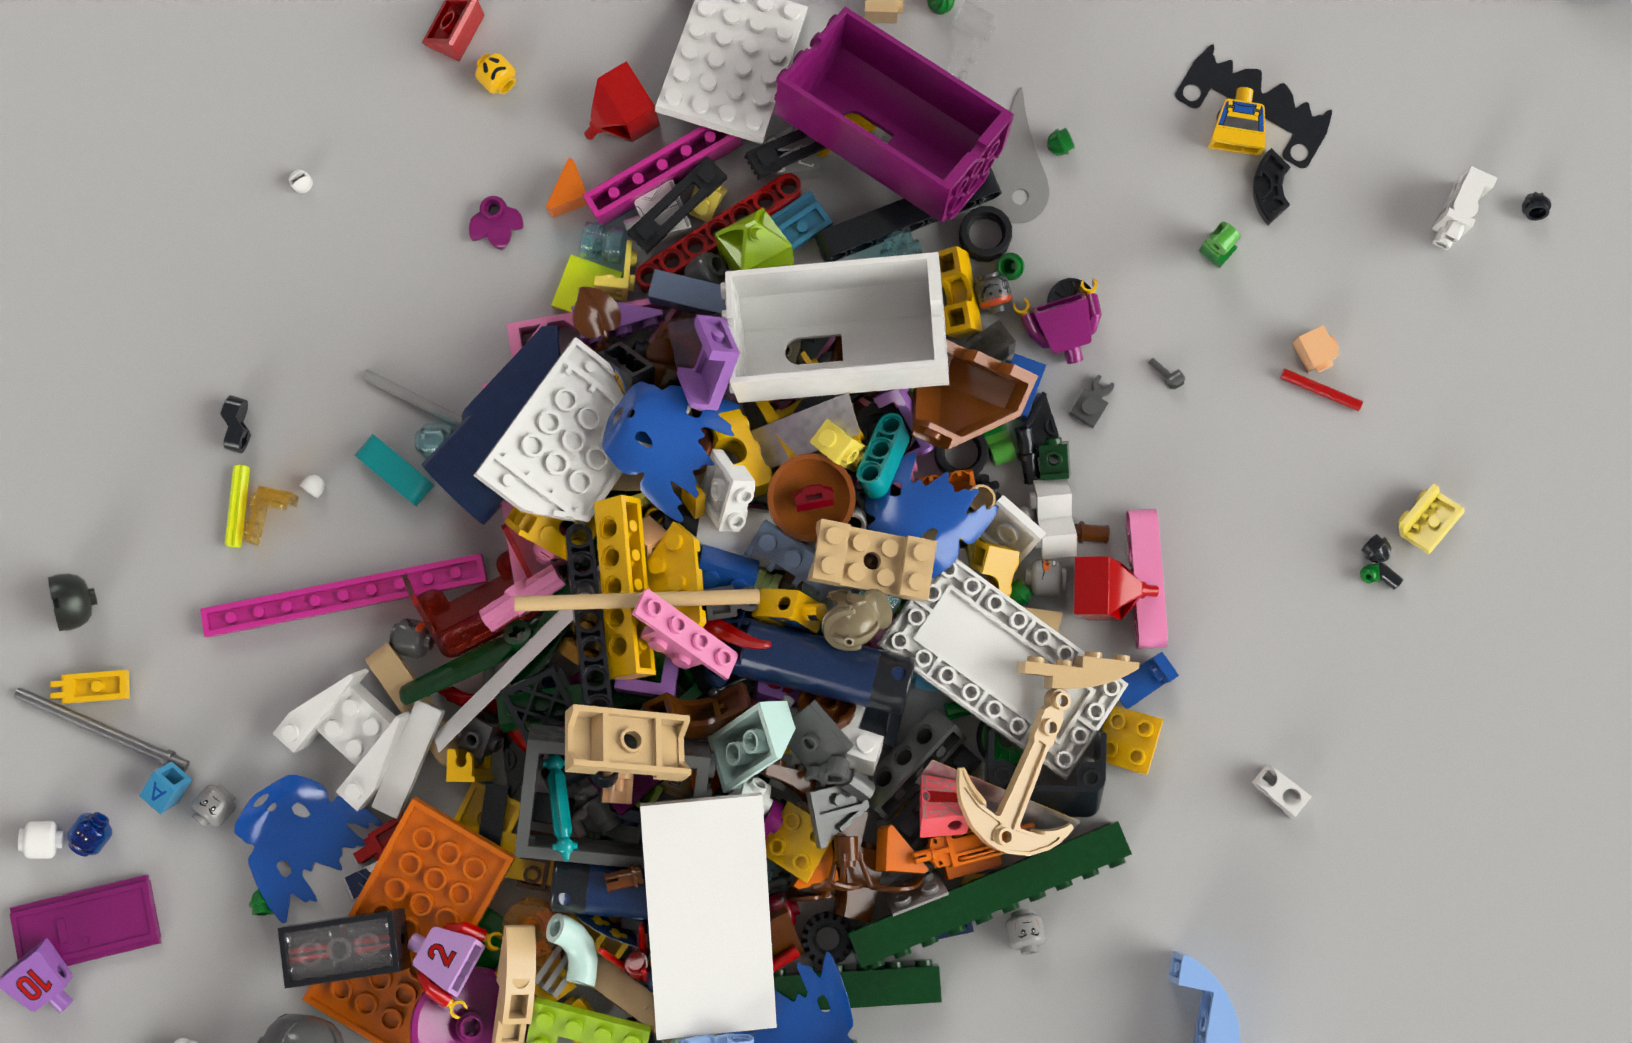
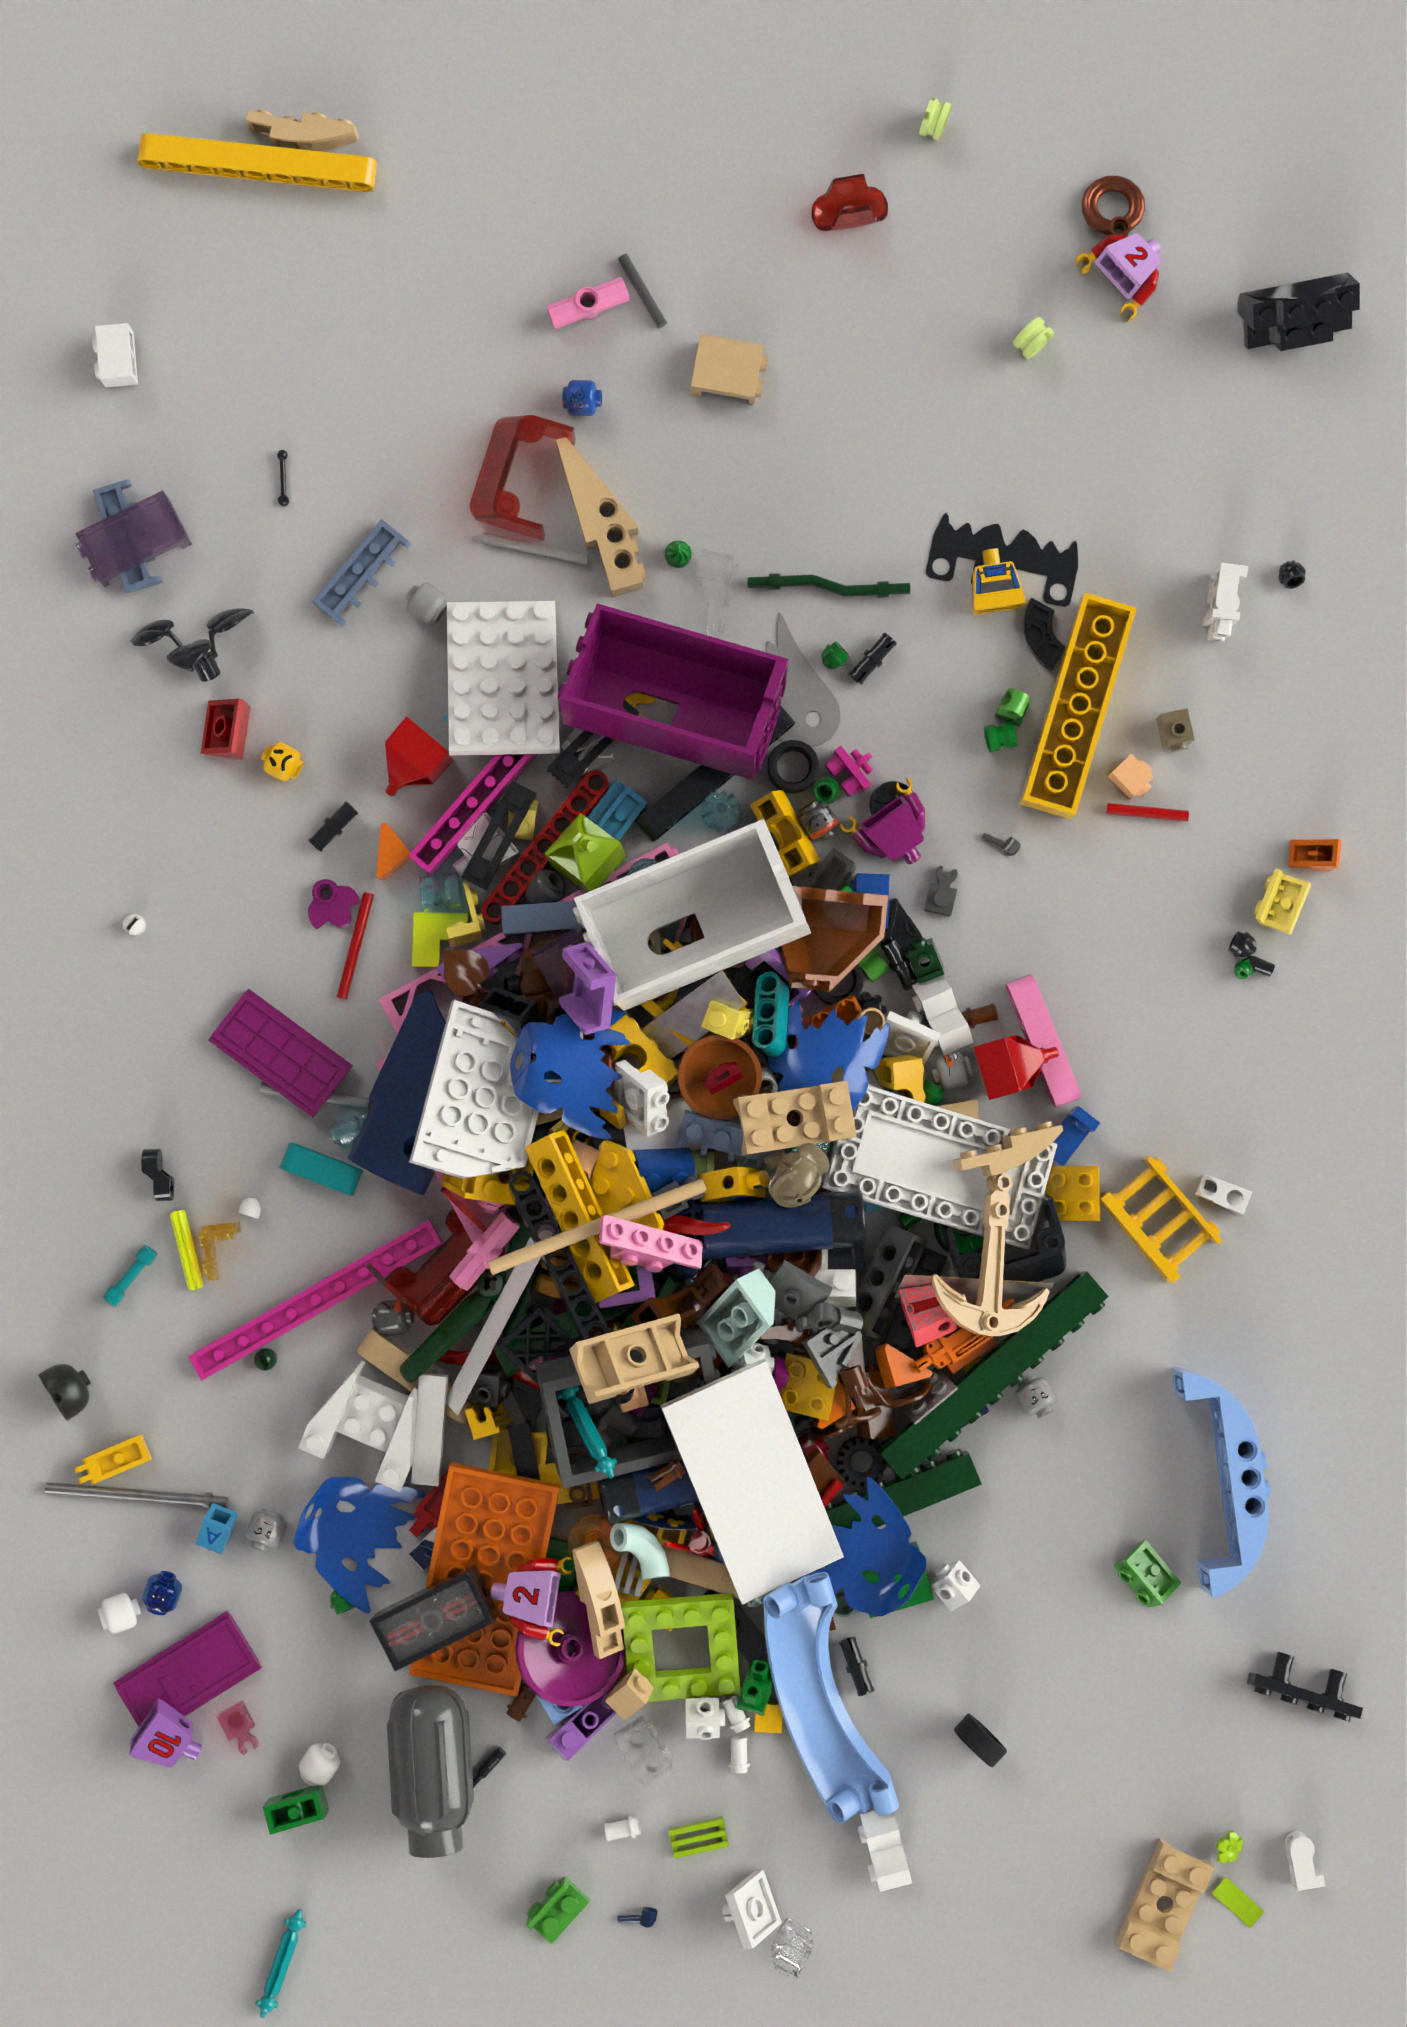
camera: 25 degrees left, 5 degrees up
(115, 990) = (236, 1723): none -> clear pink plate
(153, 526) = (116, 1293): none -> teal bar
(280, 638) = (270, 1357): none -> dark green hinge
(395, 346) = (280, 1053): none -> magenta piece
(503, 269) = (355, 945): none -> red bar
(522, 149) = (333, 826): none -> black pin
(1036, 244) = (857, 780): none -> dark pink hips
(1097, 156) = (872, 658): none -> black pin
(1126, 94) = (881, 589): none -> dark green bar
(1191, 817) = (1132, 1223): none -> yellow fence
(1198, 269) = (1002, 736): none -> green wheel
(1284, 263) = (1077, 706): none -> yellow brick
(1374, 318) = (1175, 730): none -> dark tan brick
(1478, 483) = (1315, 854): none -> orange slope

